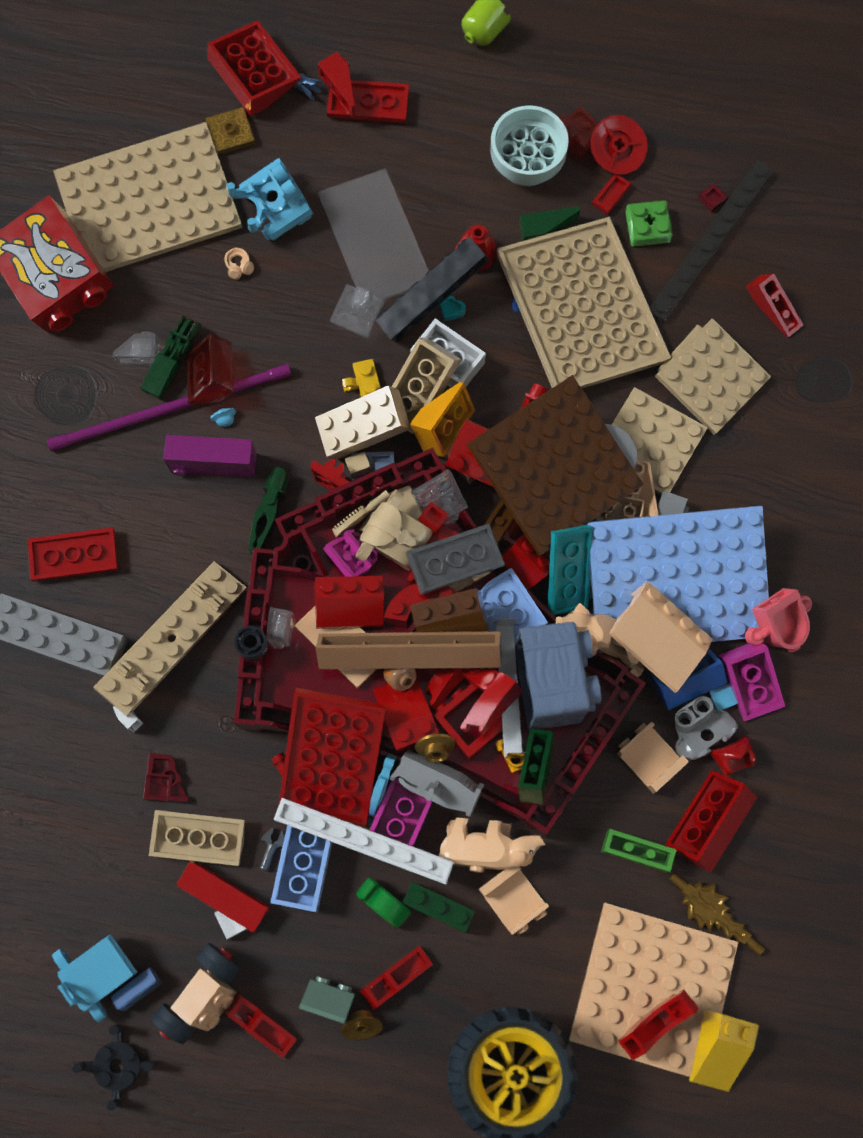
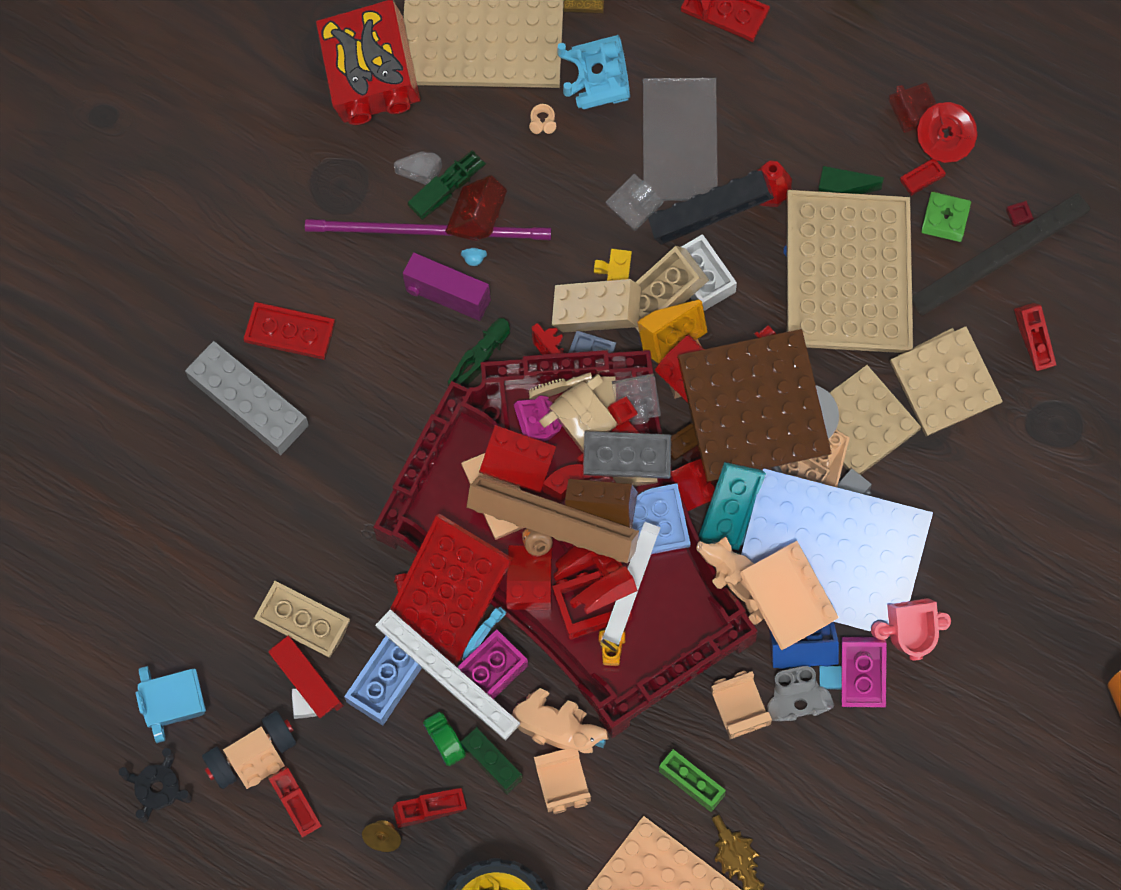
camera: 25 degrees right, 5 degrees down
(131, 722) = (282, 490): white piece -> none
(136, 989) = (198, 729): medium blue brick -> none
(154, 655) = (327, 446): tan piece -> none
(162, 780) = (291, 559): dark red slope -> none
(243, 636) = (415, 452): black wheel -> none
(268, 856) = (362, 656): dark grey bar -> none
(280, 627) = (447, 459): clear slope -> none
(327, 999) = (361, 801): sand green slope -> none
(358, 465) = (577, 342): tan slope -> none
(435, 747) = (543, 614): pearl gold piece -> none
(438, 782) = (533, 647): light grey piece -> none
(452, 308) = (726, 231): teal tile -> none
(529, 124) = (870, 85): light aqua wheel -> none
(536, 766) = (625, 663): dark green brick -> none
(554, 676) = (669, 589): sand blue brick -> none
(711, 820) = (772, 781): red slope -> none
(734, 756) = (817, 732): red hair -> none

